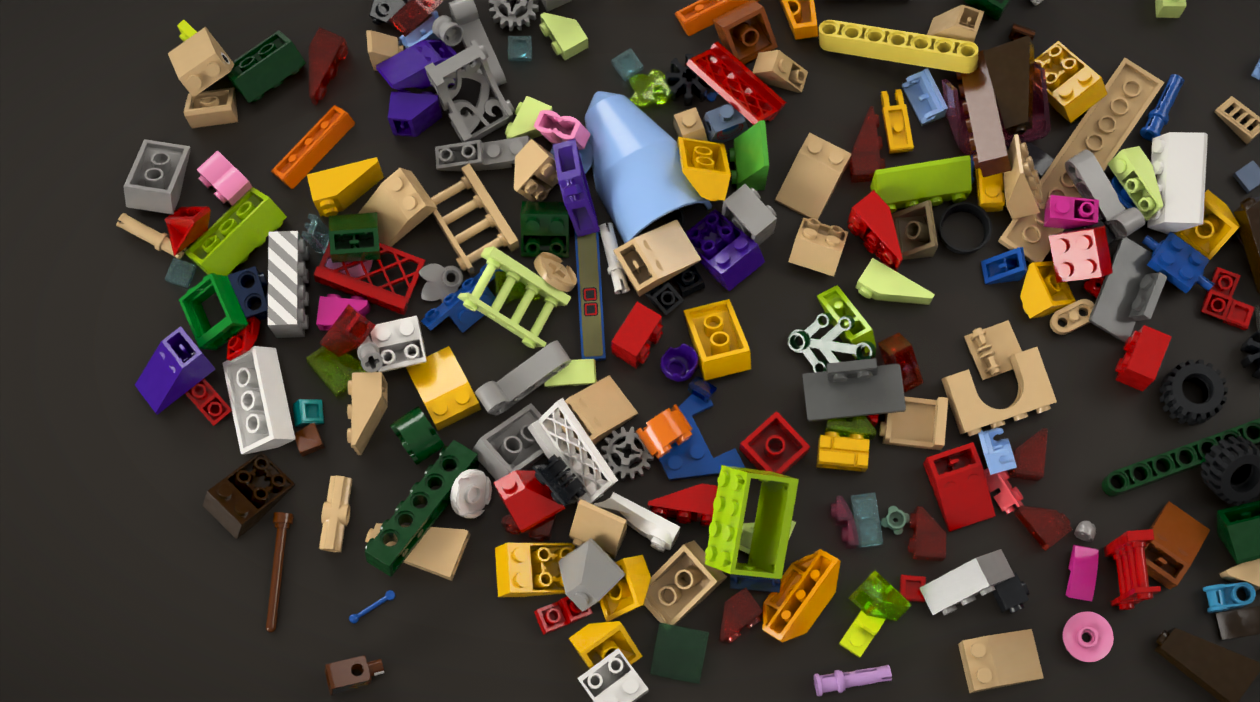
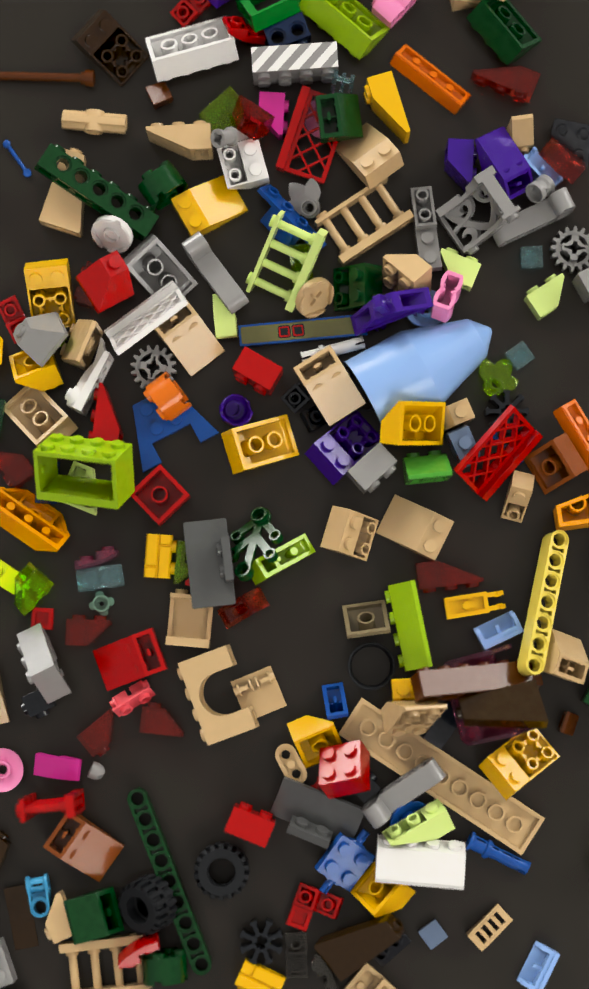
camera: 90 degrees right, 10 degrees up
(307, 412) = (184, 93): teal slope -> none
(561, 493) = (118, 304): black hinge -> none
(702, 389) = (212, 431): clear blue slope -> none
(875, 226) = (369, 582): red slope -> none
(888, 285) = (315, 593): yellowish green slope -> none
(997, 453) = (160, 690): light blue hinge -> none
(1070, 212) = (384, 762): dark pink slope -> none

